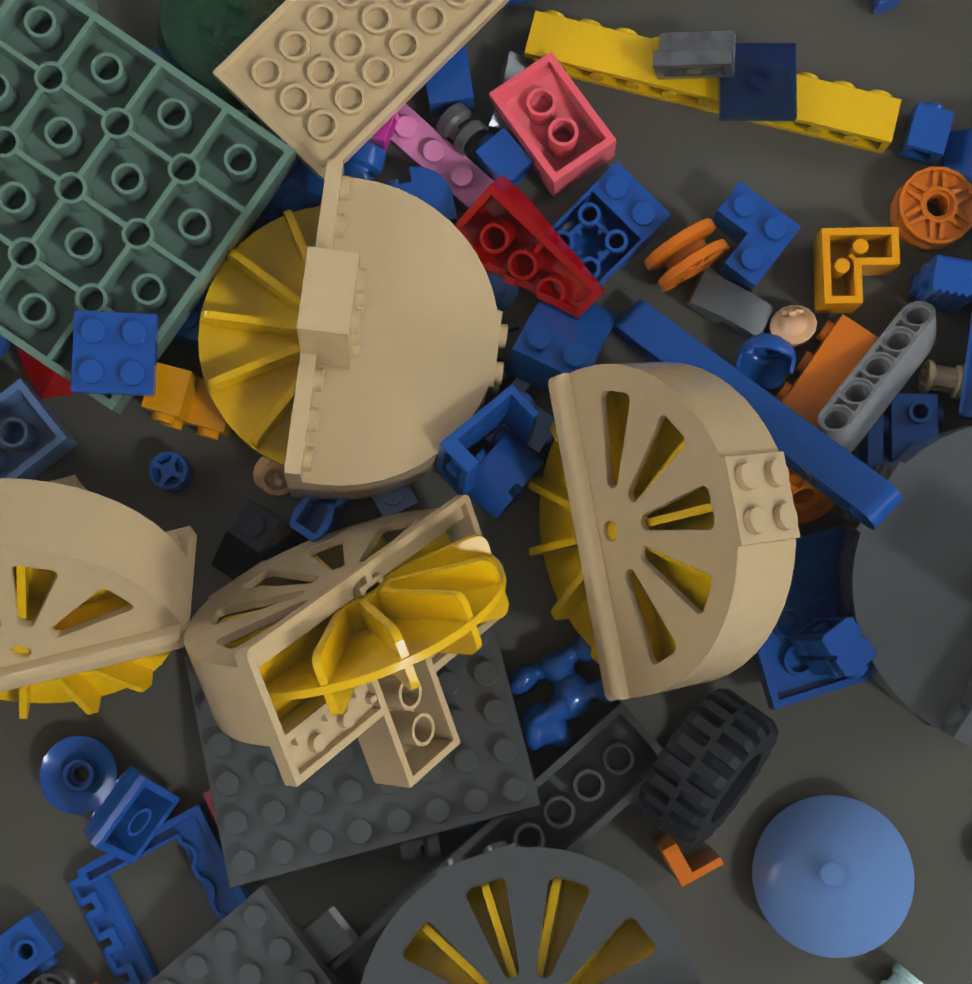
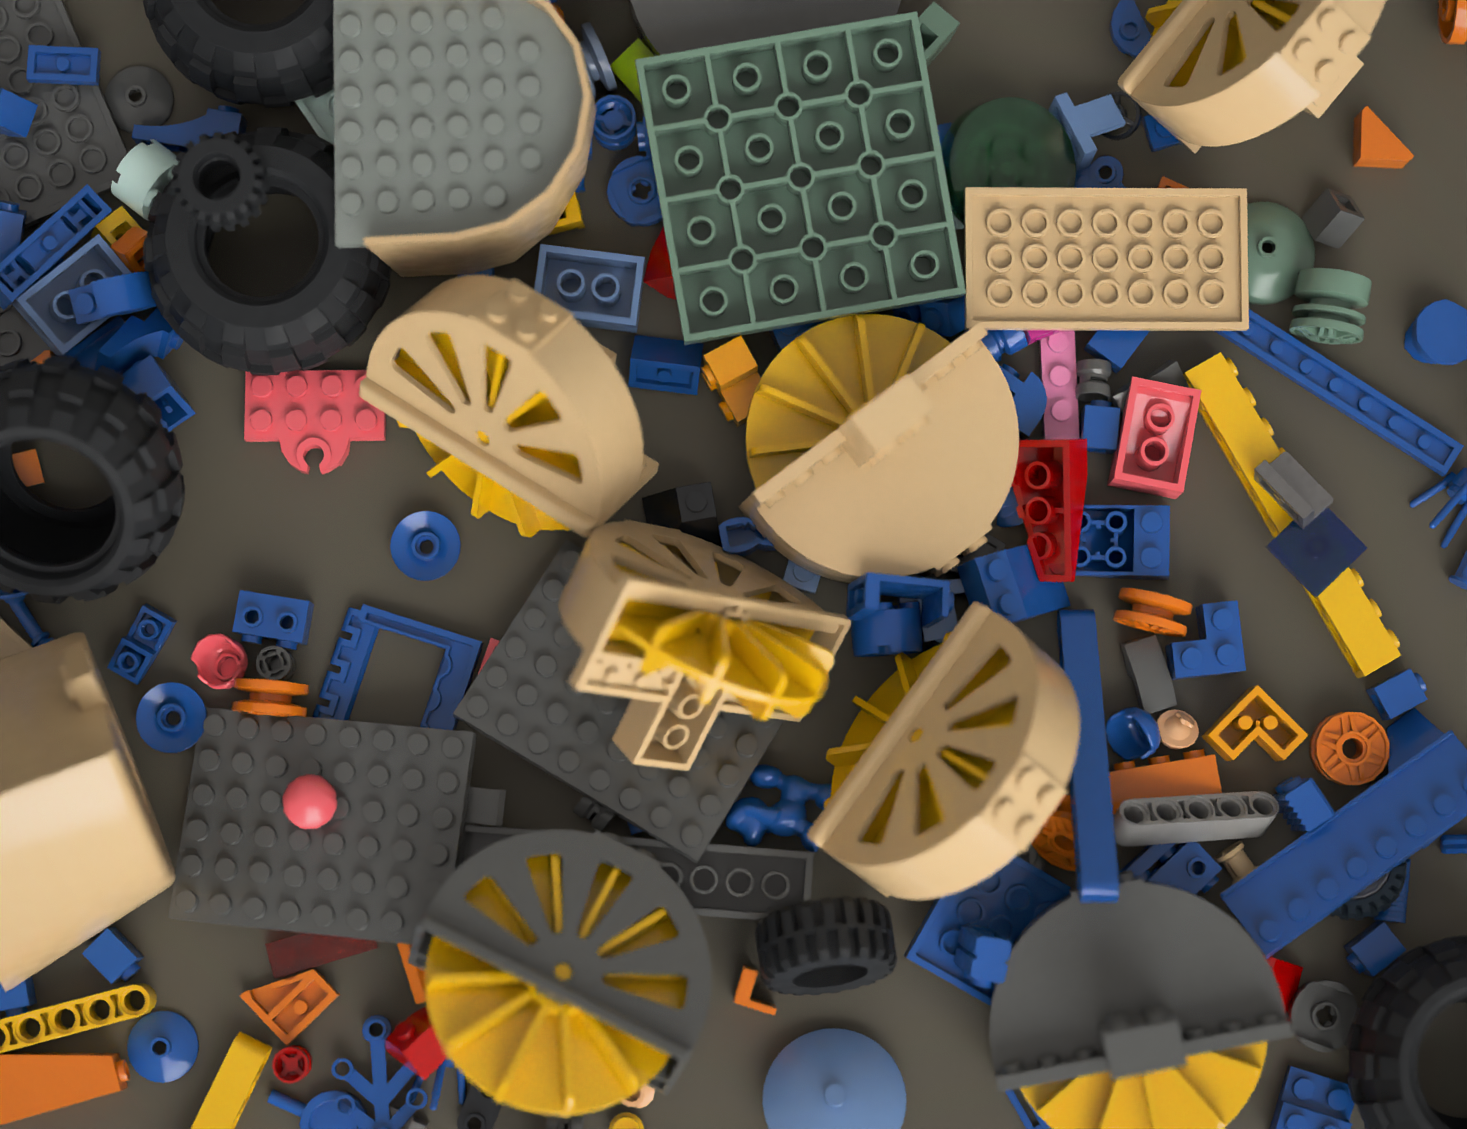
camera: 40 degrees right, 0 degrees up
(114, 353) = (722, 309): blue plate -> none
(125, 446) = (665, 365): none -> blue panel
(130, 815) = (436, 604): blue slope -> none
(164, 468) = (675, 405): blue wheel -> none
(270, 477) = (738, 481): light nougat hat -> none

